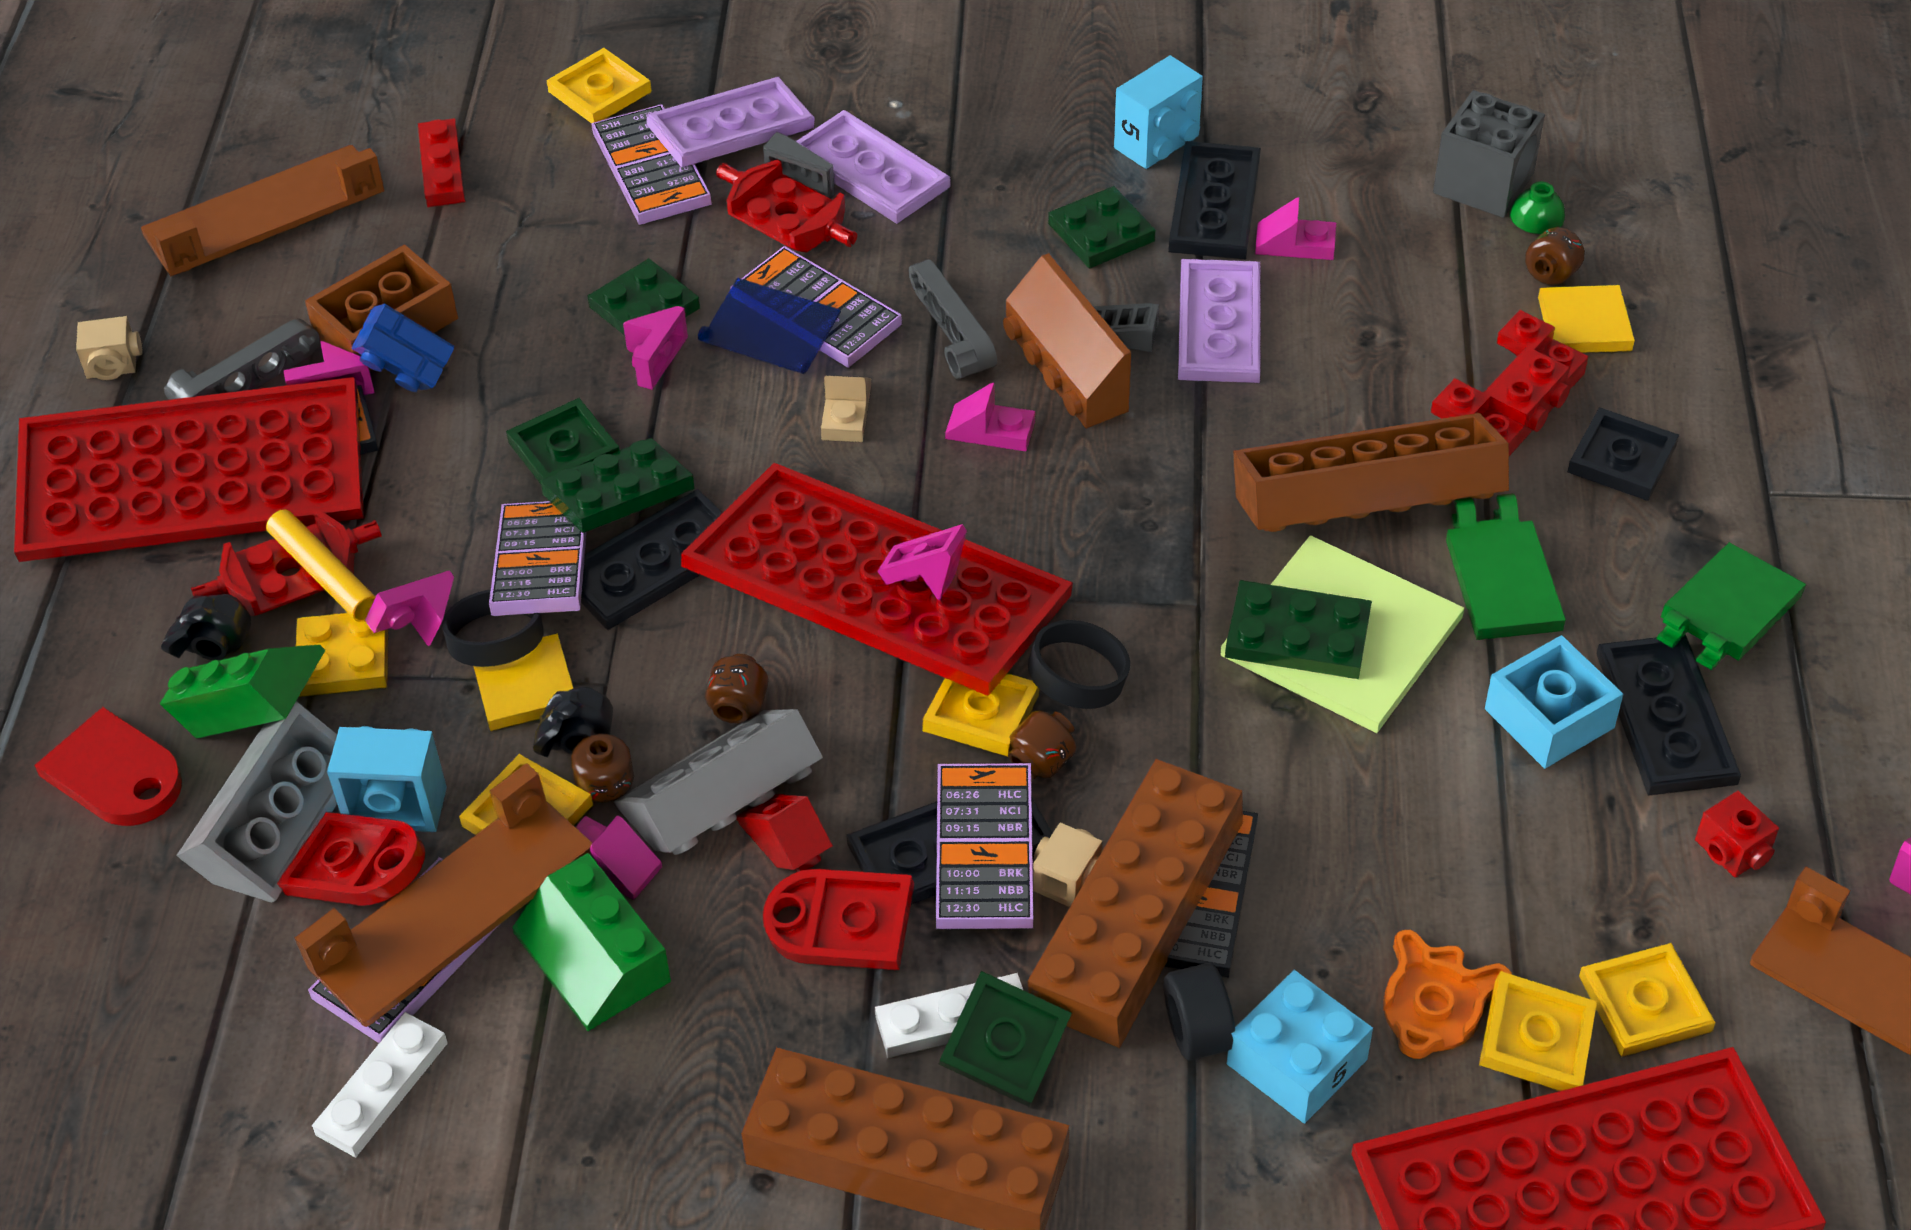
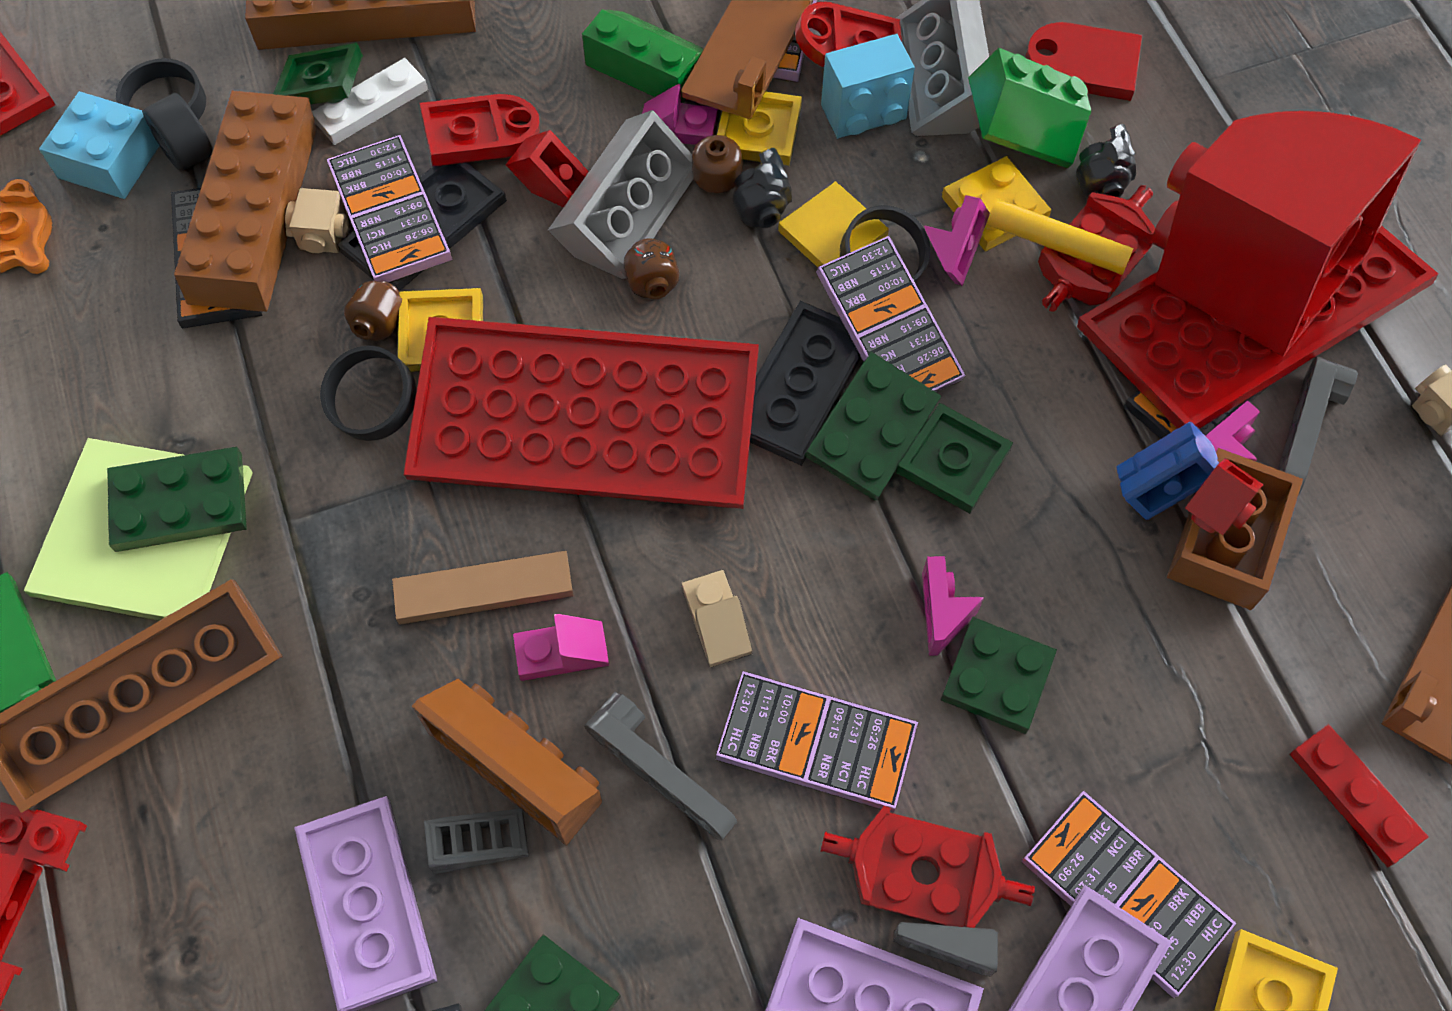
camera: 155 degrees right, 15 degrees up
(144, 423) = (1278, 217): none -> red brick
(391, 279) = (1224, 499): none -> red brick
(770, 326) = (845, 684): clear blue piece -> none
(929, 556) = (531, 399): dark pink slope -> none
(1037, 487) = (482, 587): none -> medium nougat tile
(1204, 1153) = (157, 69): none -> black tyre

